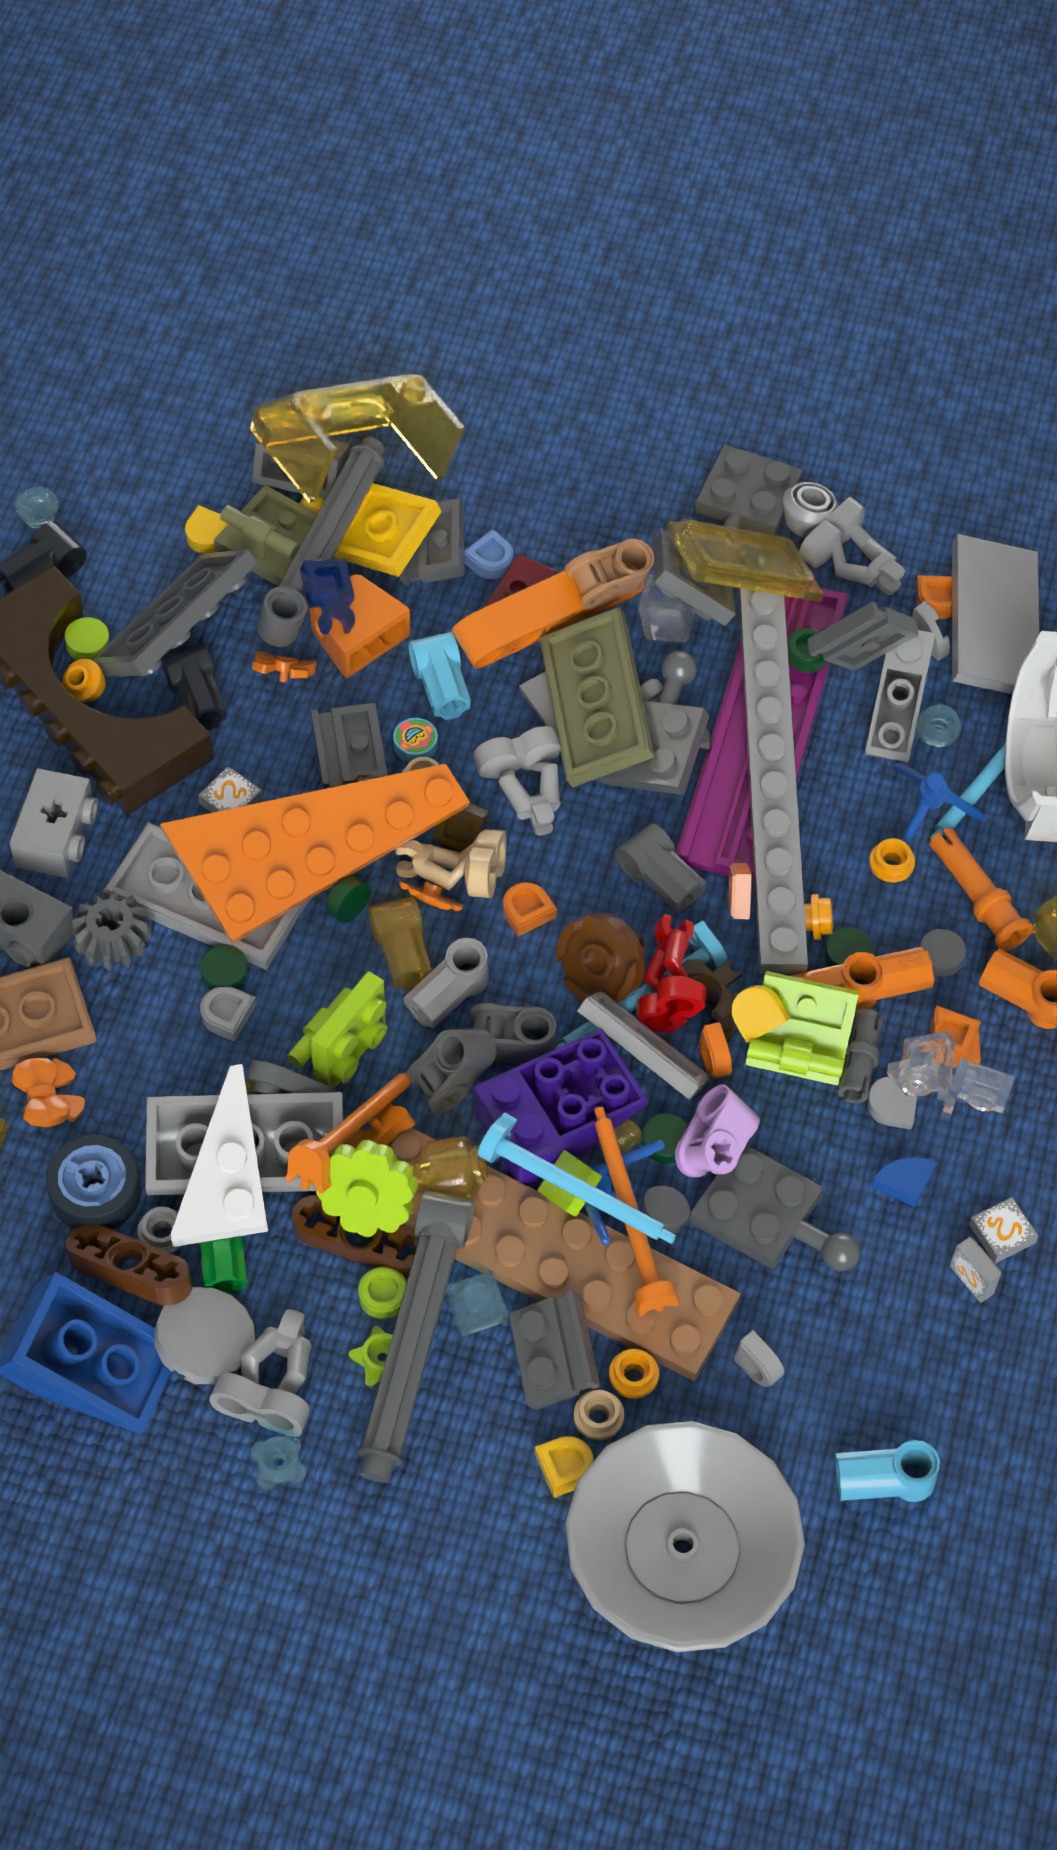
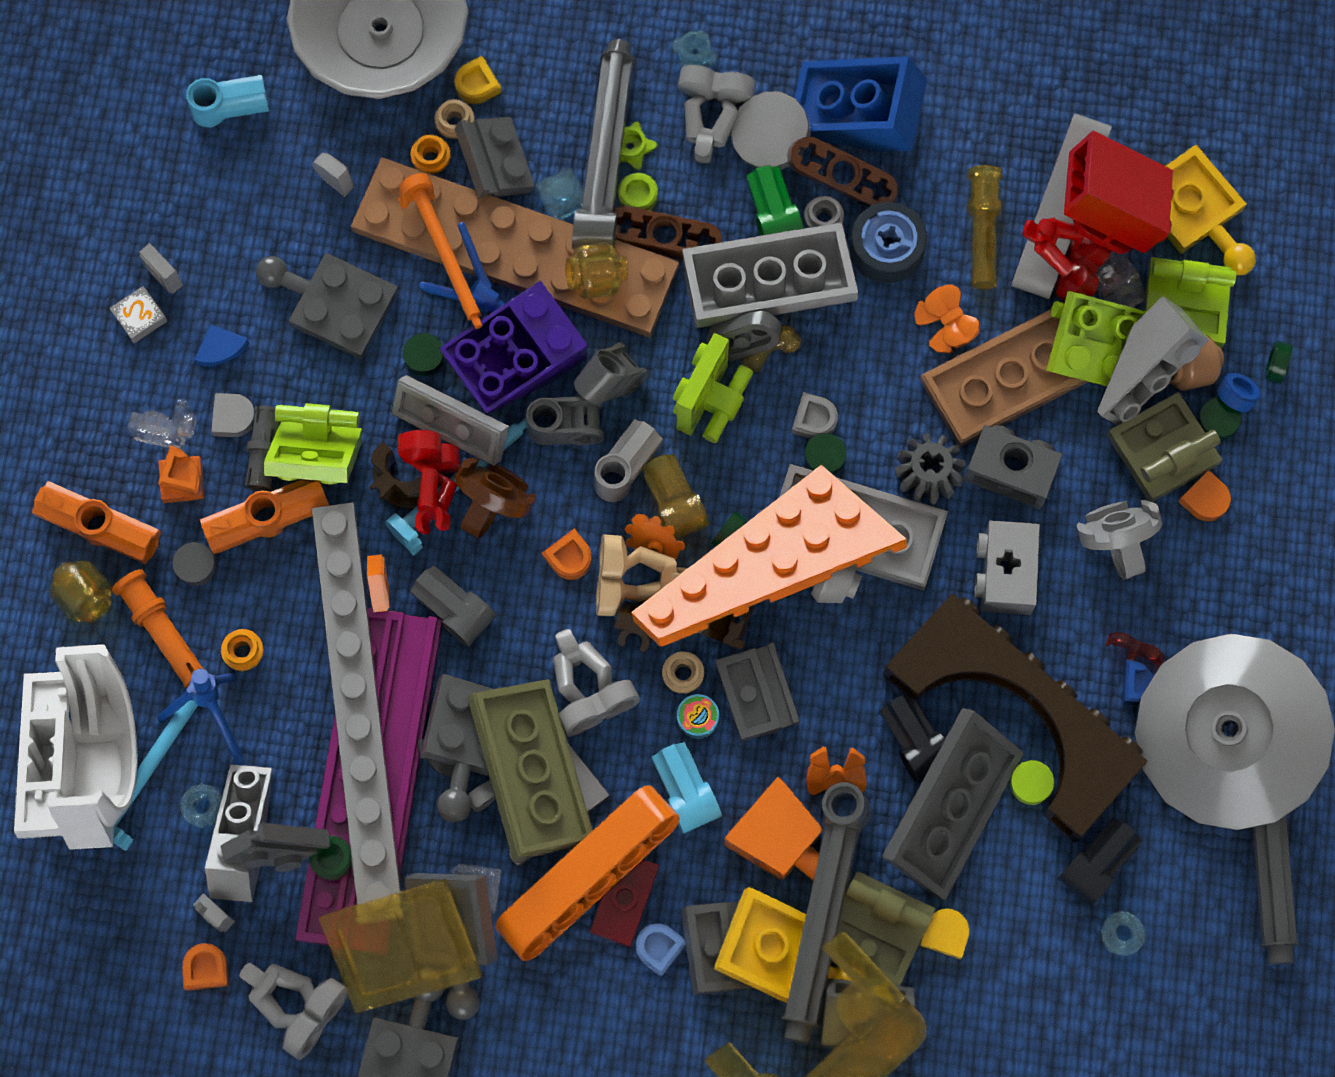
camera: 175 degrees right, 15 degrees up
(92, 684) = (1021, 727): light orange plate -> none
(225, 1184) = (776, 229): white wing -> none
(229, 791) = (857, 629): tile -> none
(311, 1158) = (707, 232): orange piece -> none
(329, 587) = (806, 832): clear blue plate -> none
(369, 1188) = (659, 243): lime plant -> none
(385, 1129) = (668, 306): orange piece -> none
(497, 1144) = (558, 275): medium azure piece -> none
(562, 1198) = (497, 282): lime tile -> none
(605, 577) = (534, 891): medium nougat piece -> none
(666, 1206) = (409, 287): dark grey tile -> none
(715, 1051) = (387, 429): orange tile -> none
(716, 1134) = (378, 350): lavender piece -> none
(758, 1011) = (350, 444): yellow tile -> none
(807, 506) = (337, 1051): light grey cone -> none
(819, 916) = (305, 575): light orange plate -> none
(845, 943) = (277, 553): dark green tile -> none
(924, 1064) = (206, 429): clear bracket -> none
(992, 611) = (147, 942): light grey tile -> none

